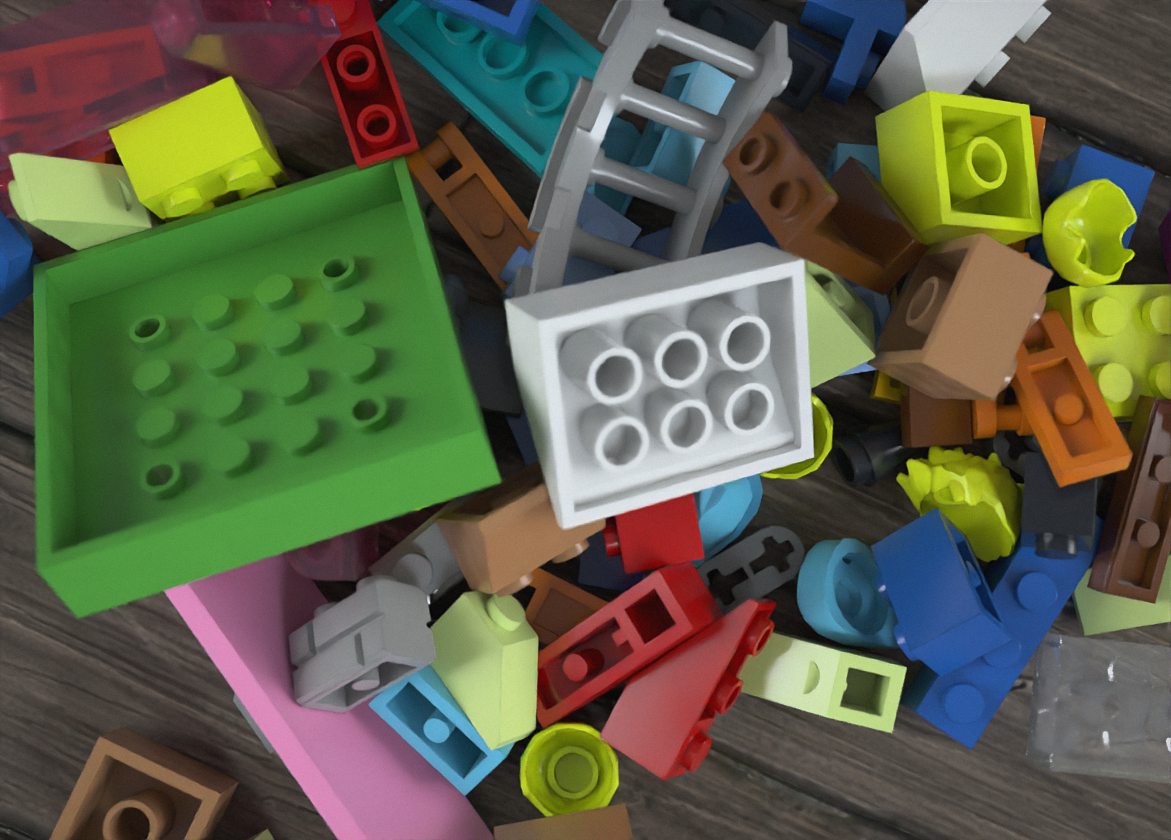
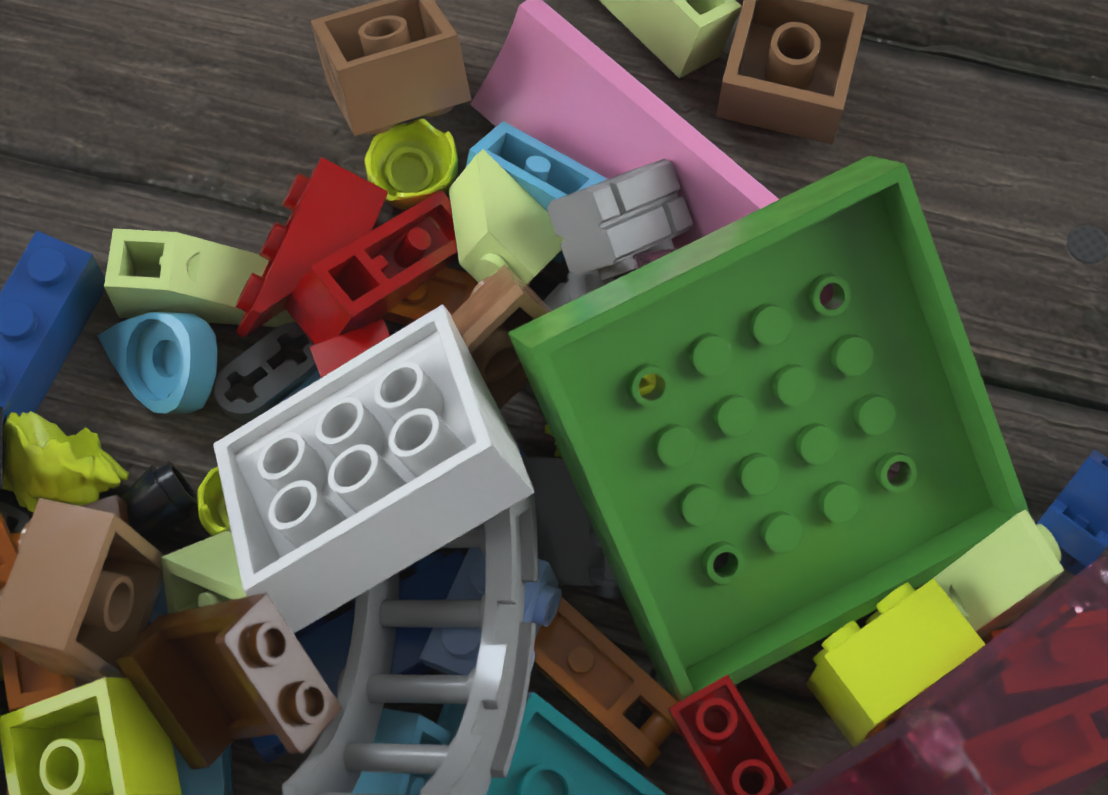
camera: 170 degrees right, 15 degrees down
(938, 594) = (78, 362): blue brick -> none

